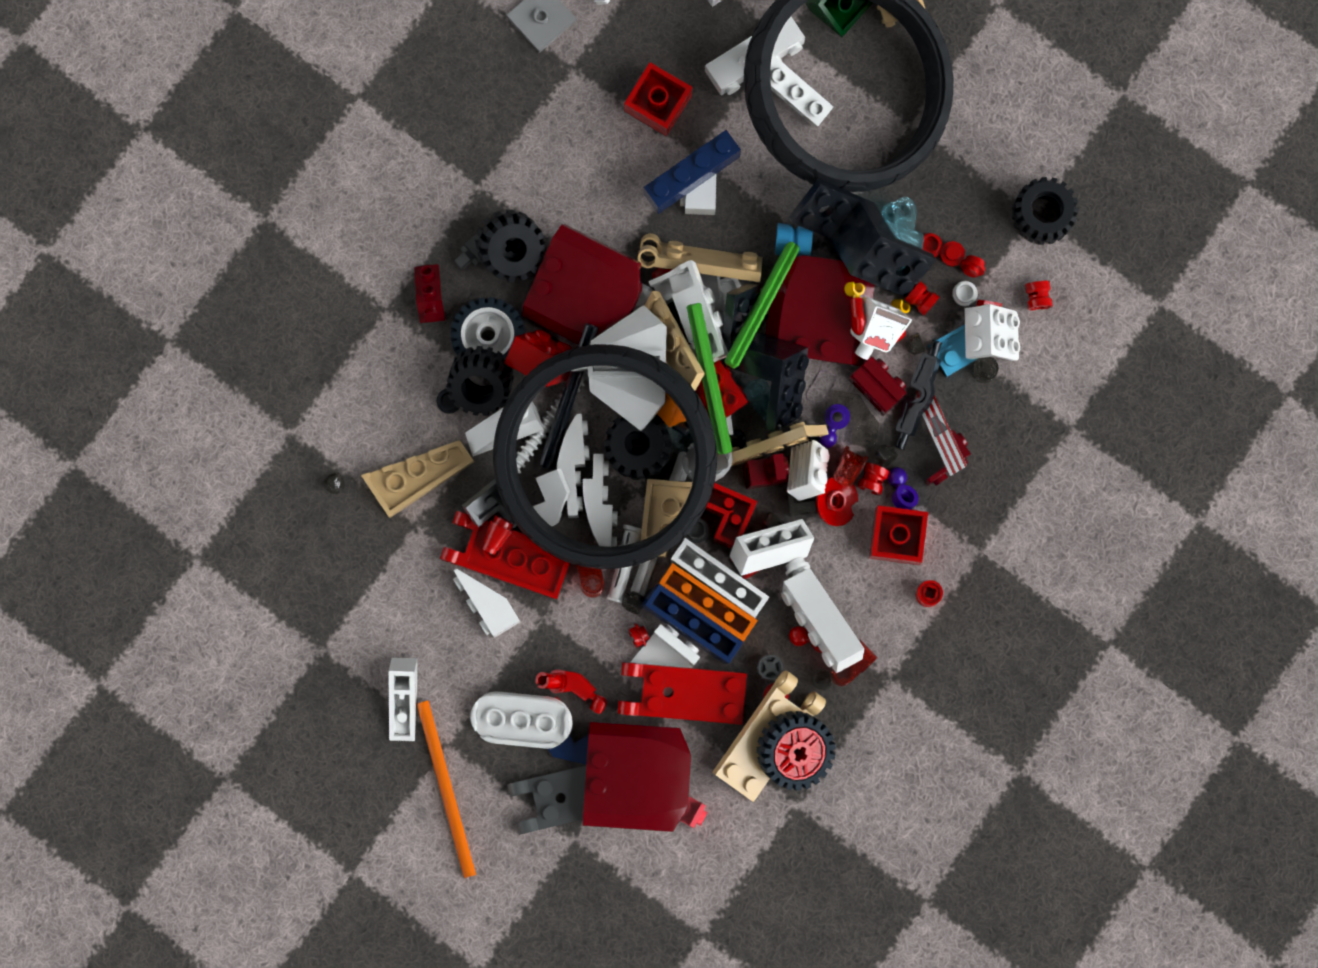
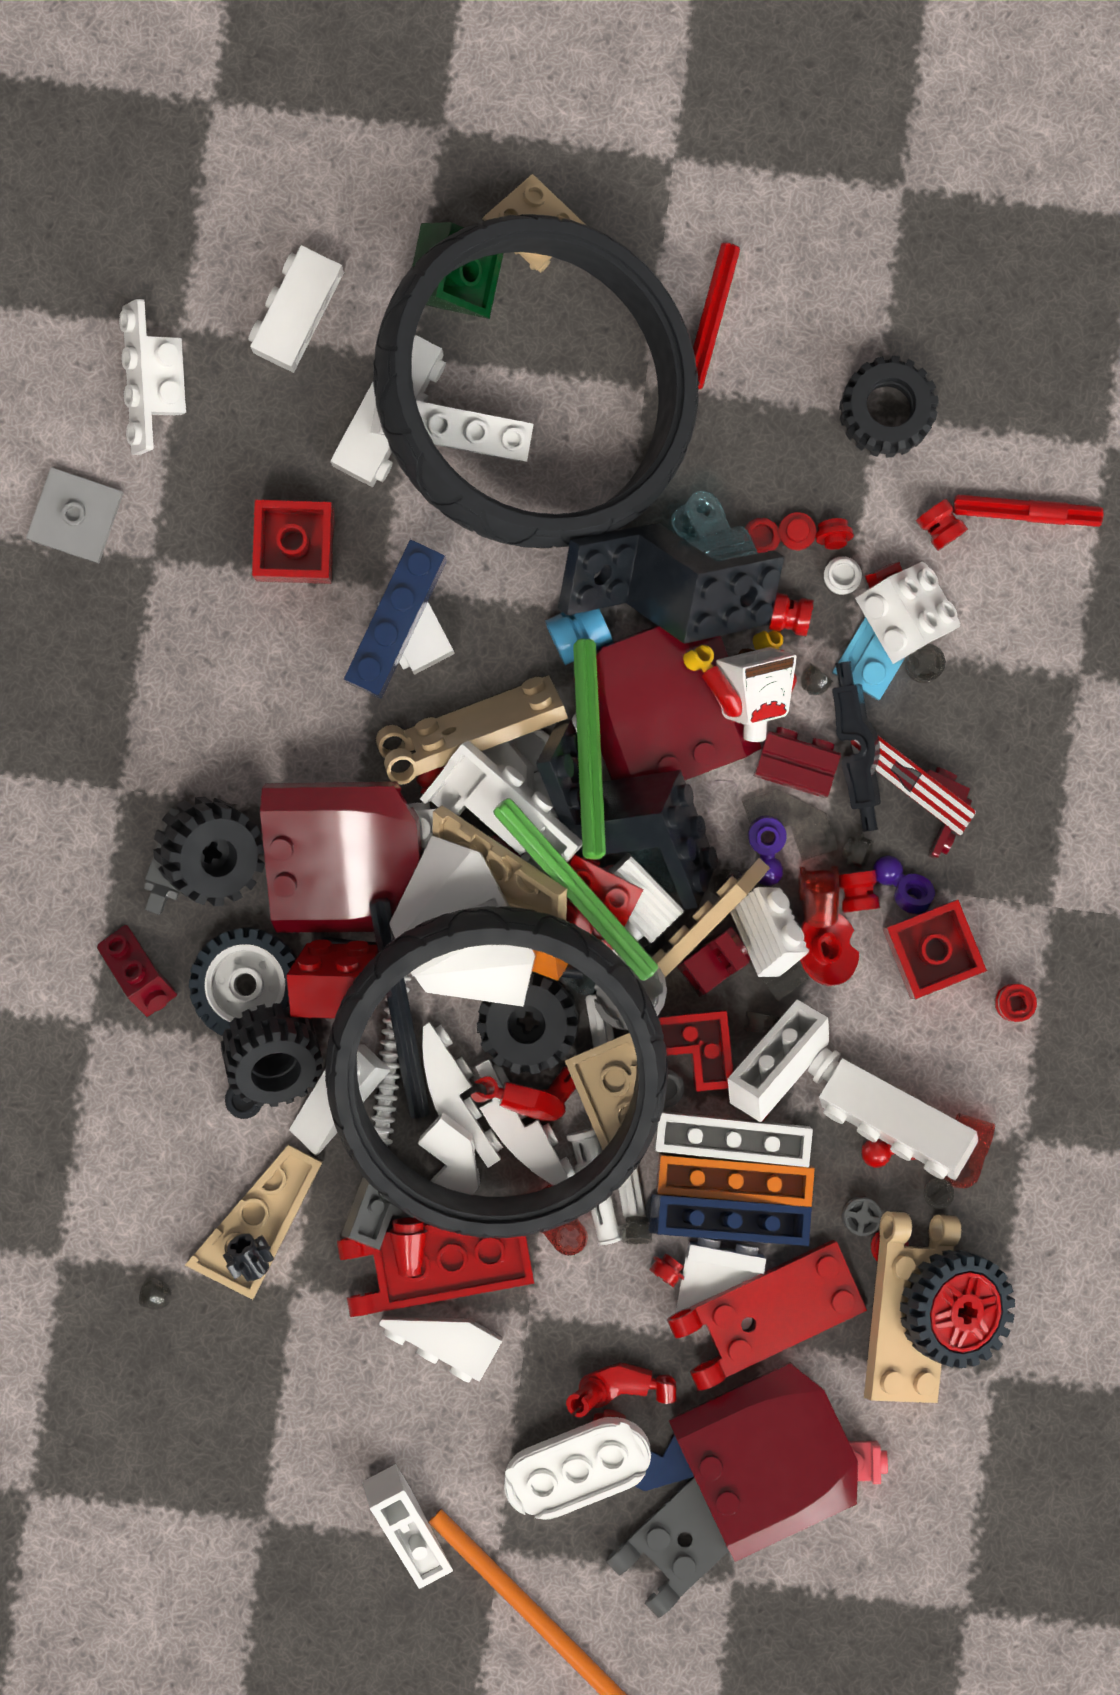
camera: 30 degrees left, 5 degrees up
(400, 488) = (248, 1257): none -> black gear
(613, 489) = (528, 1101): none -> red arm
(747, 418) = (655, 906): none -> white brick
(974, 102) = (714, 308): none -> red axle
(1093, 315) = (1028, 510): none -> red axle

